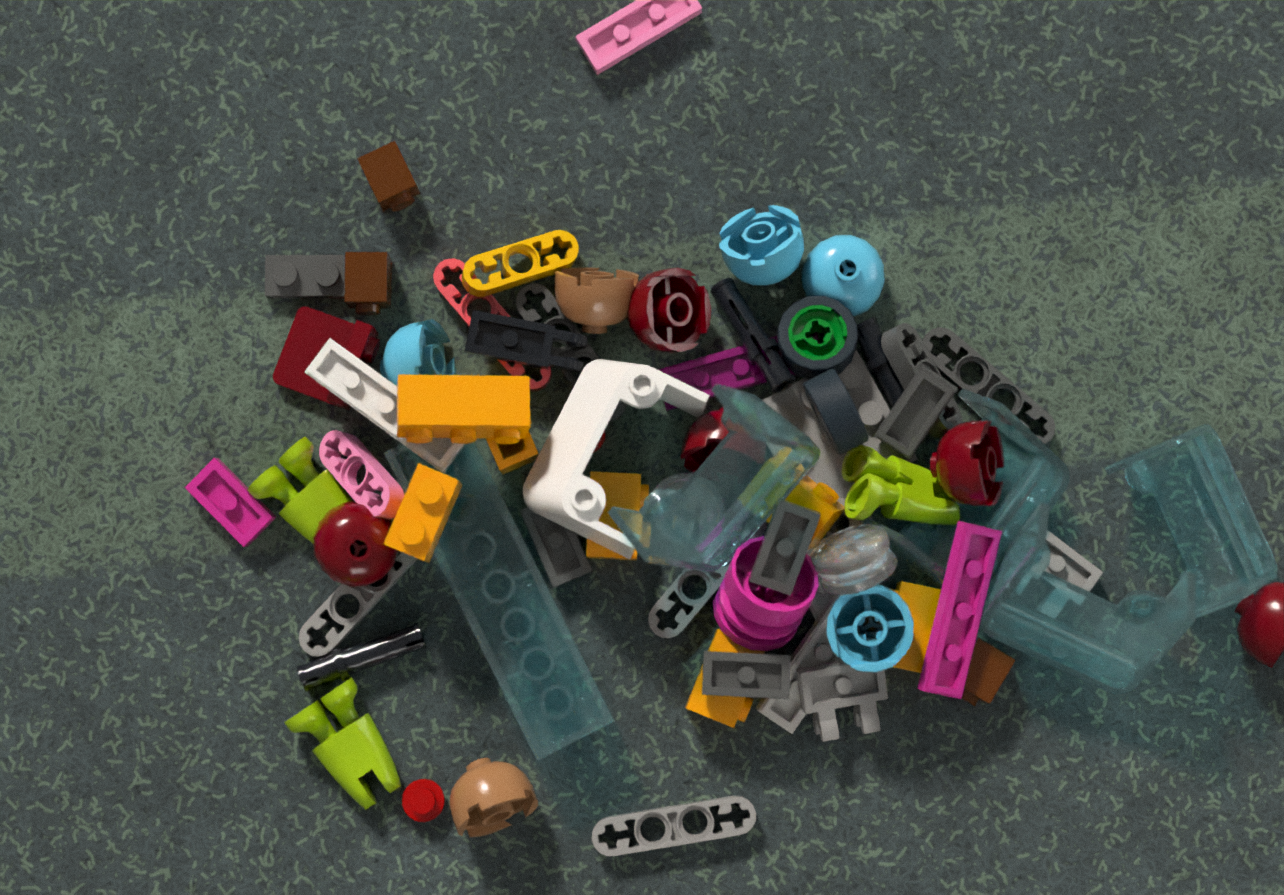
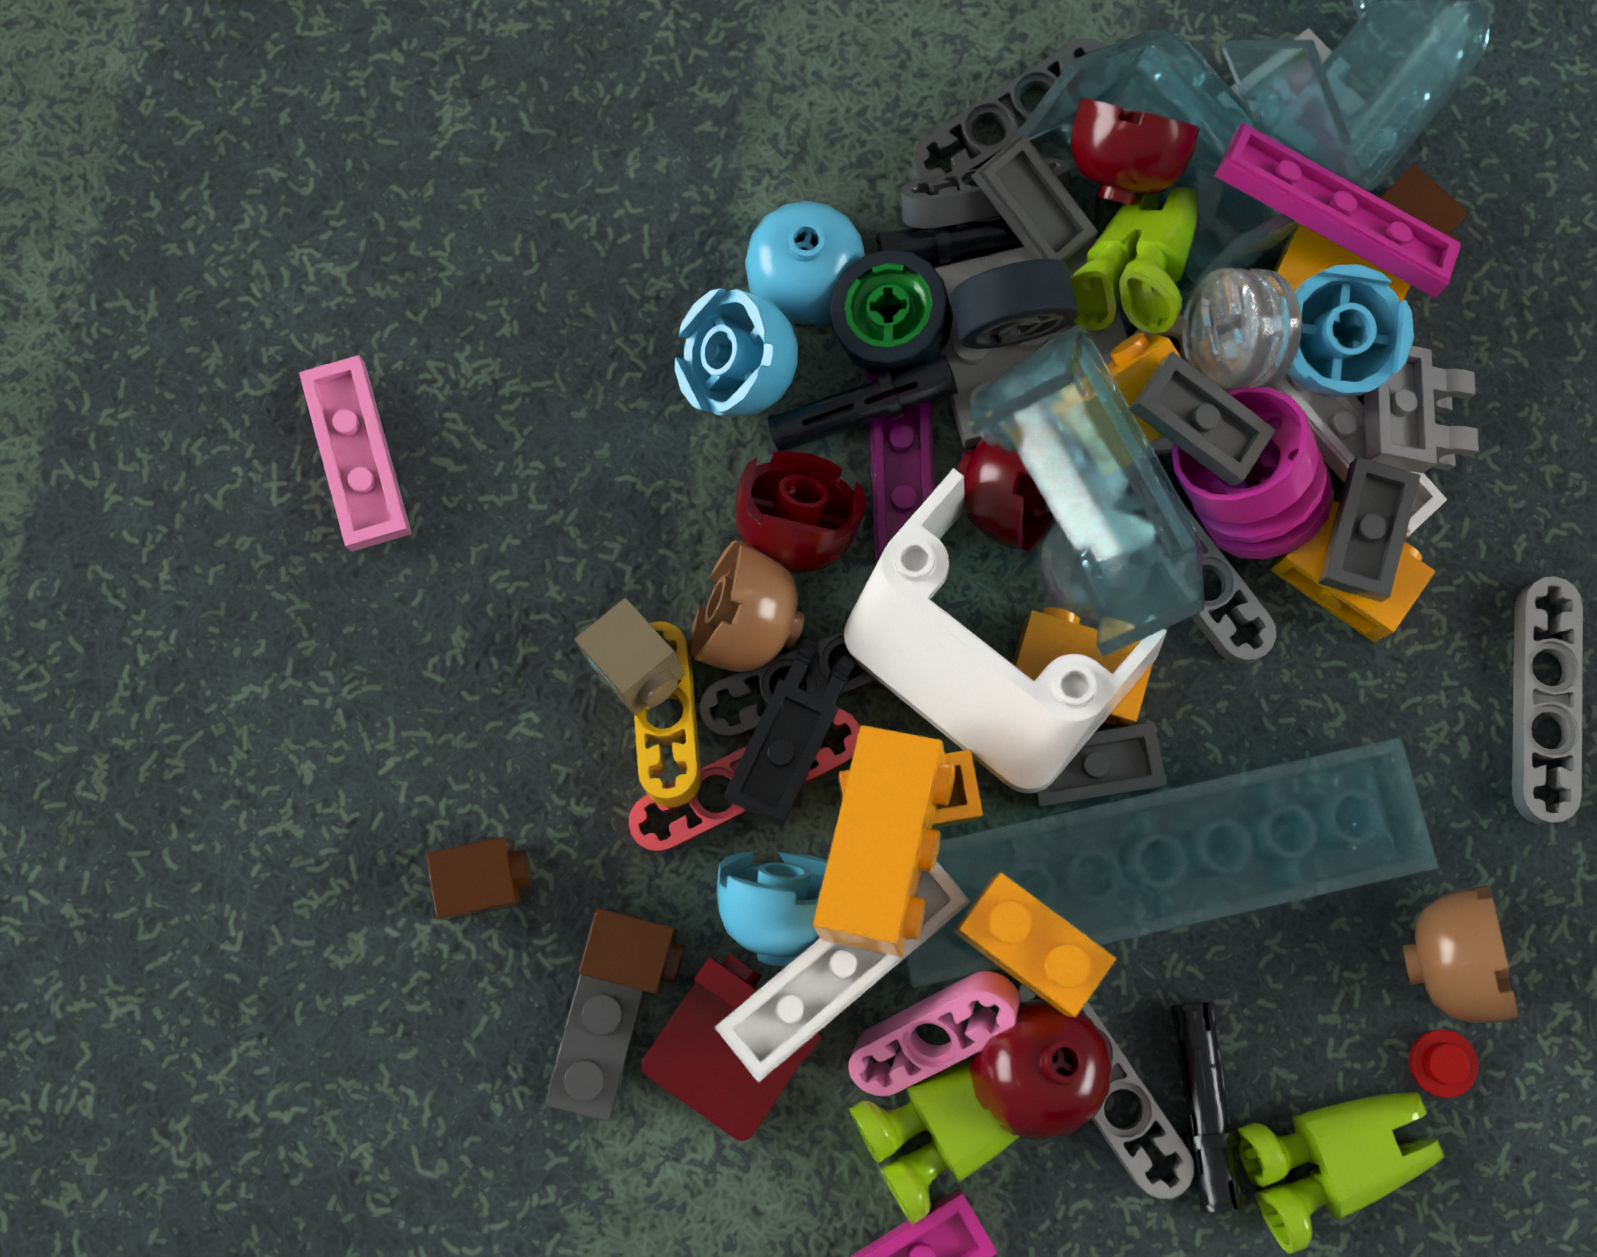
camera: 75 degrees left, 5 degrees down
(545, 231) = (631, 657): none -> dark tan brick

